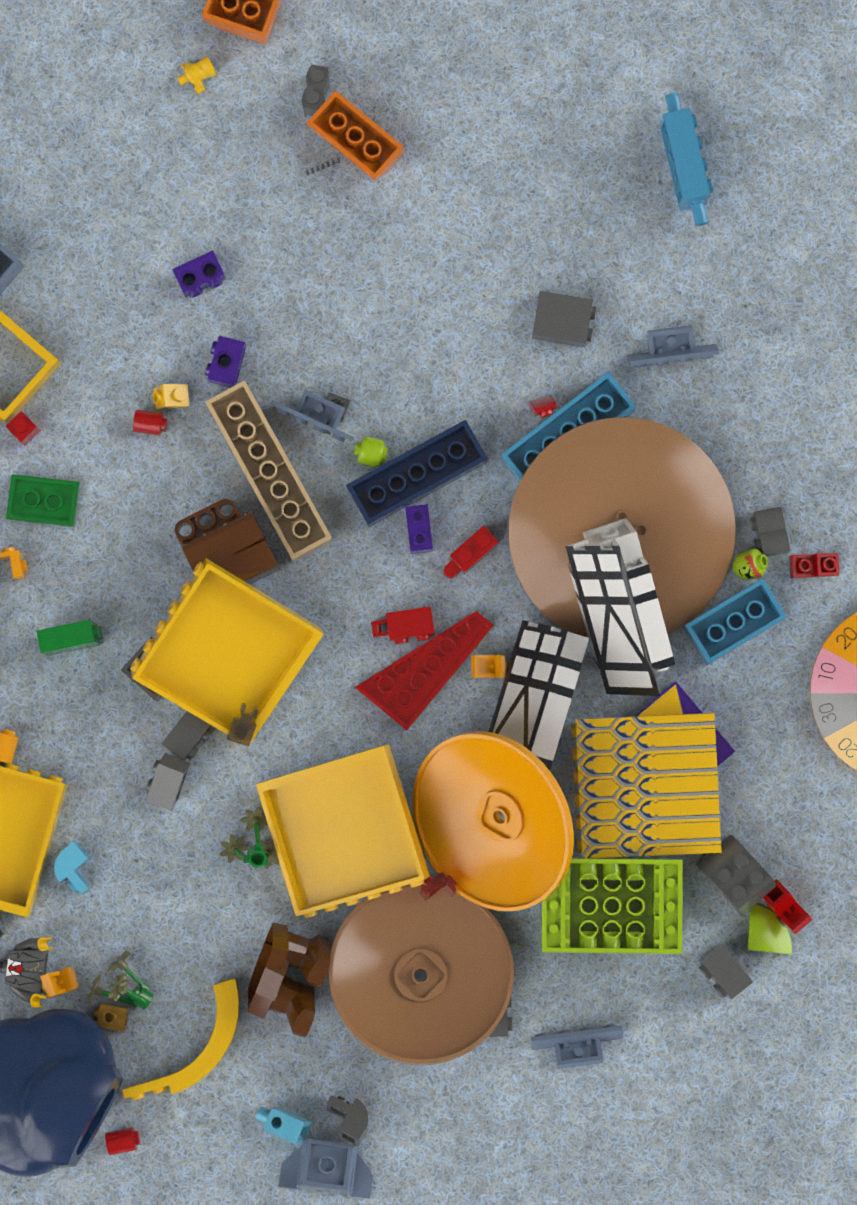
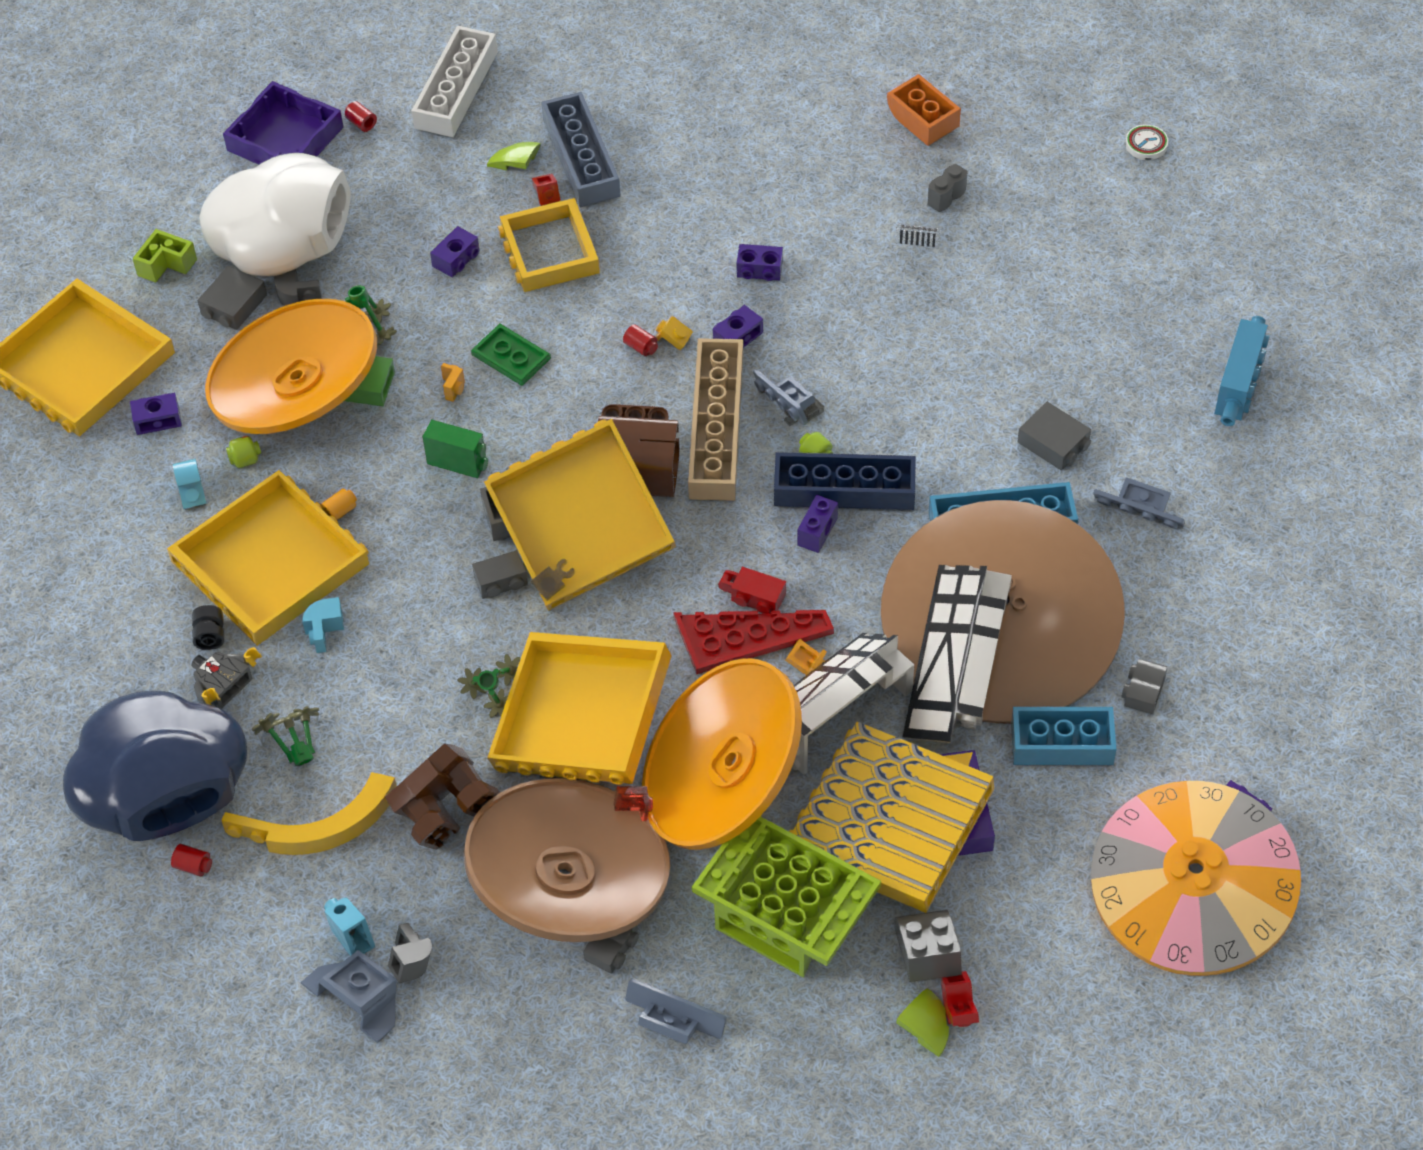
camera: 30 degrees right, 30 degrees down
(22, 428) = (533, 294): red brick -> none
(59, 982) = (237, 702): light orange bracket -> none
(112, 1016) = (264, 755): pearl gold brick -> none
(167, 781) = (455, 595): brick -> none
(196, 73) = (855, 135): yellow piece -> none
(356, 136) = (961, 227): orange slope -> none
(470, 552) = (851, 563): red brick -> none
(543, 406) = (992, 480): red slope -> none
(725, 971) = (860, 1022): dark grey brick -> none
(750, 564) = (1109, 695): lime head -> none
(814, 565) = (1177, 739): red slope -> none

